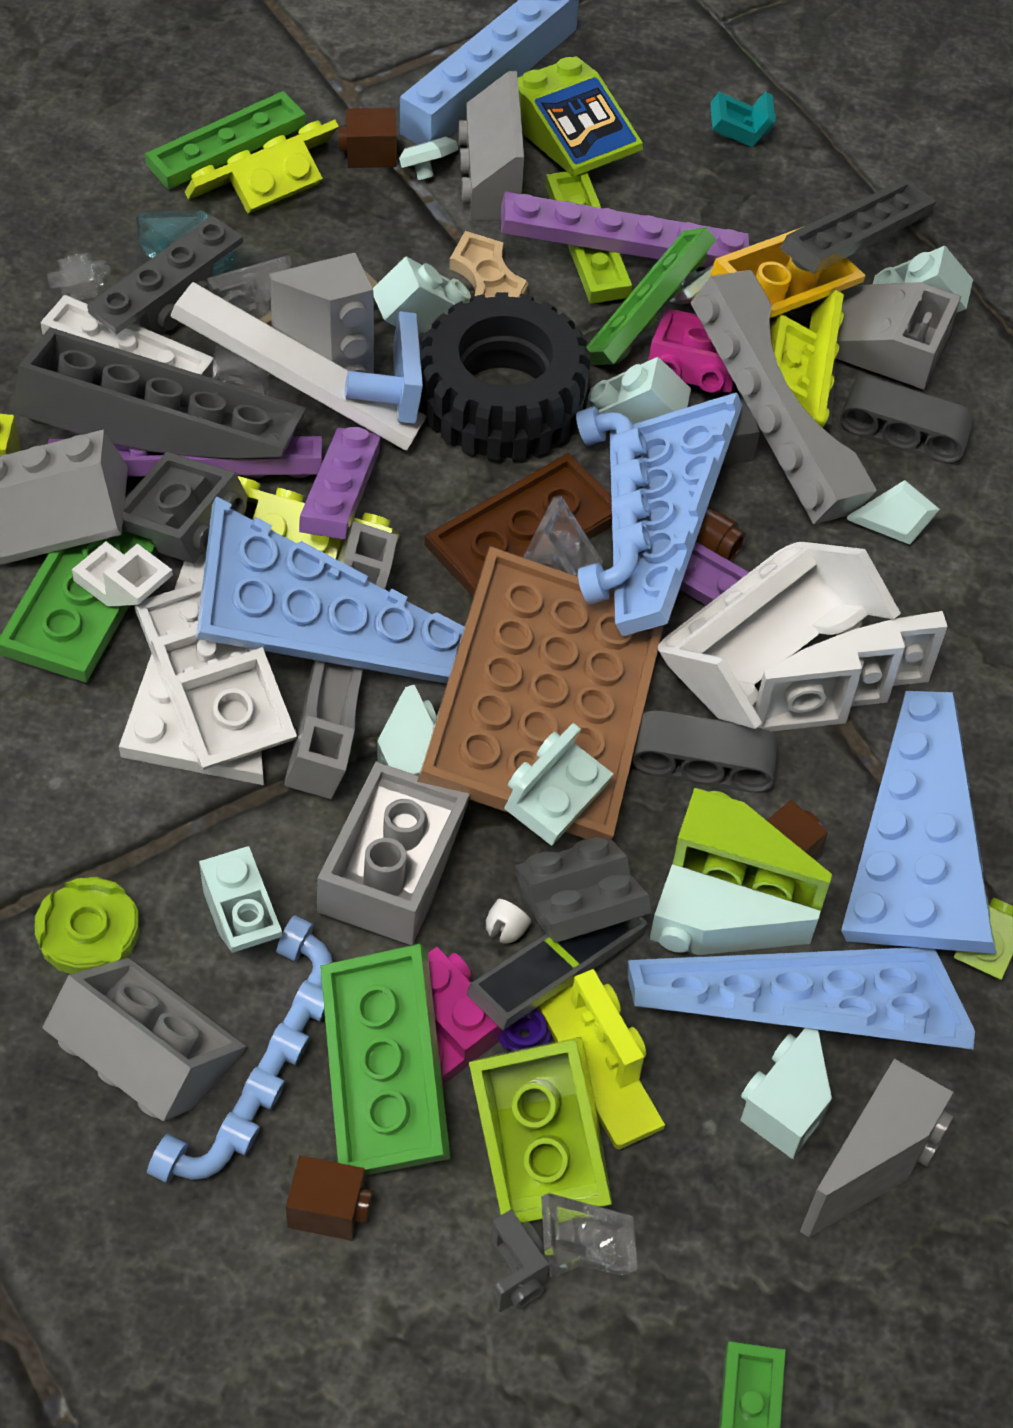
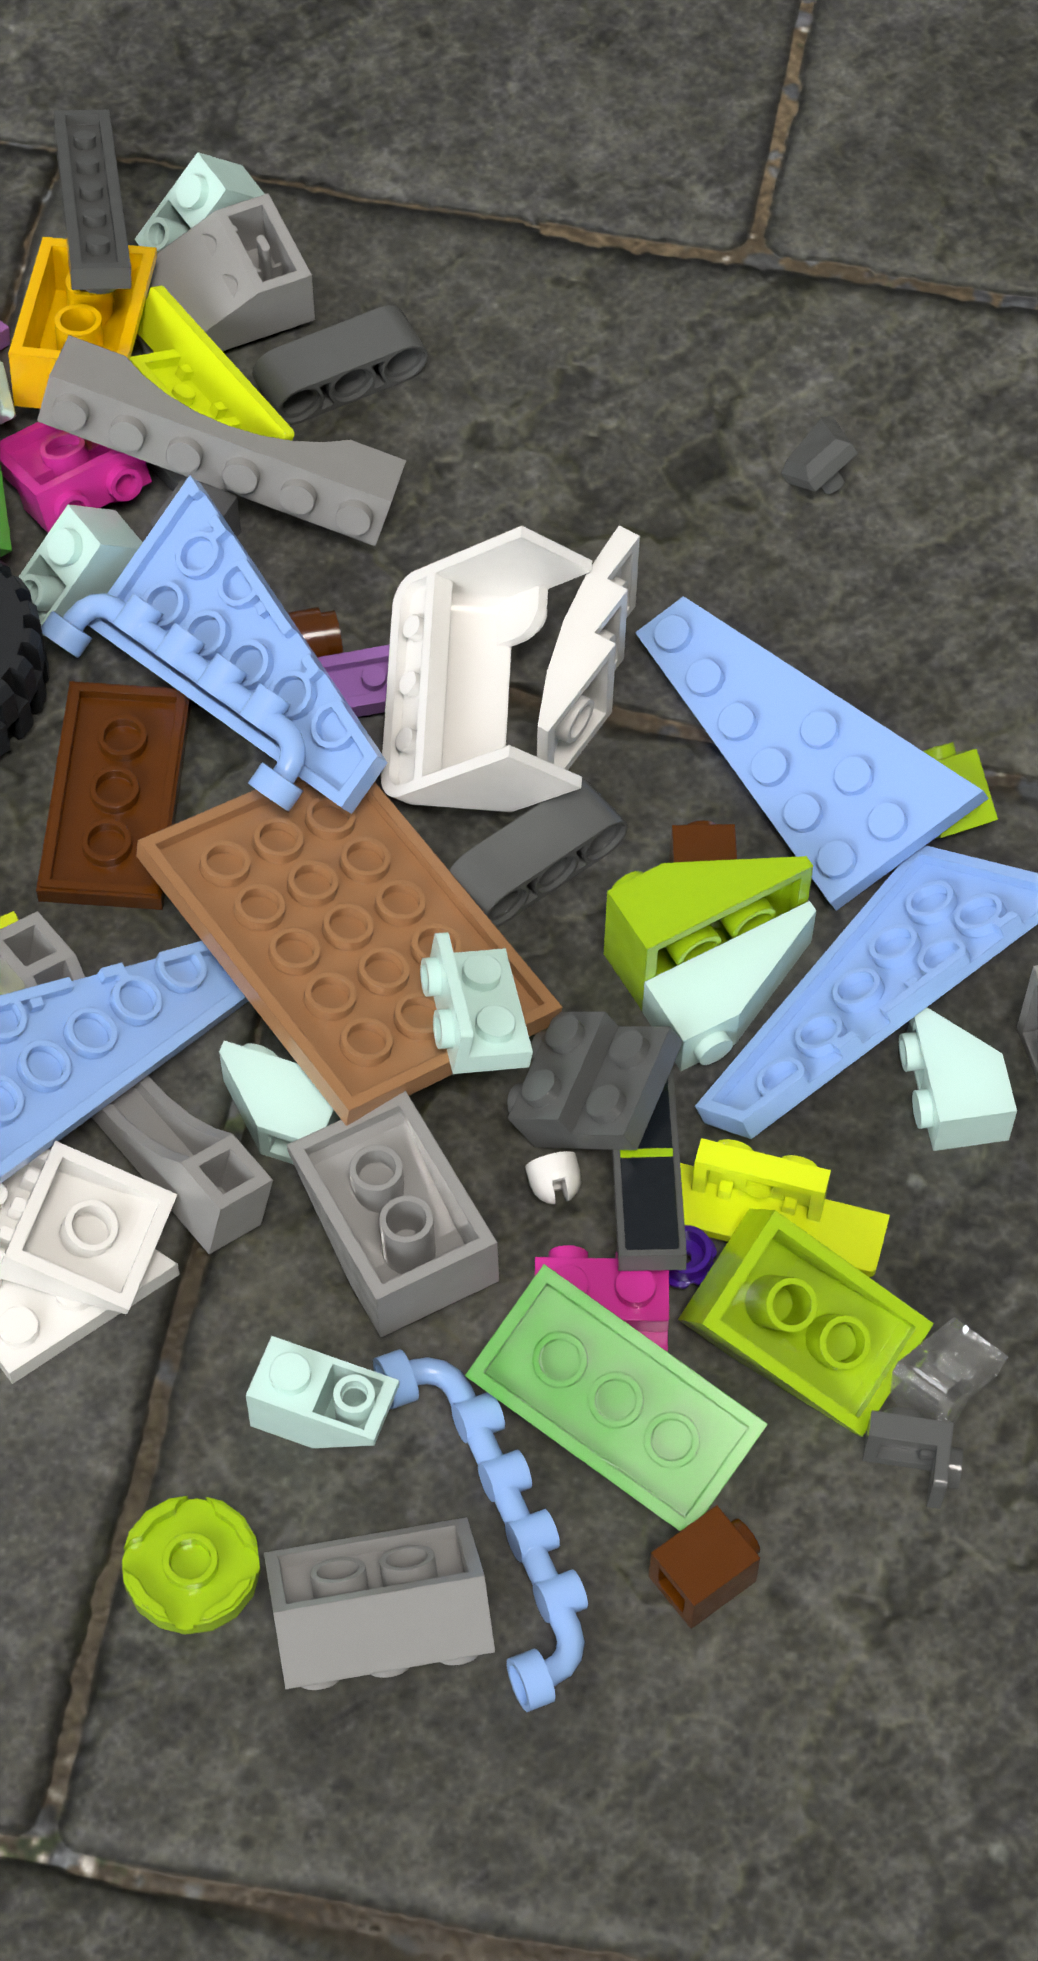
camera: 45 degrees left, 5 degrees up
(561, 541) = (184, 778): clear slope -> none
(897, 513) = (436, 467): light aqua piece -> none

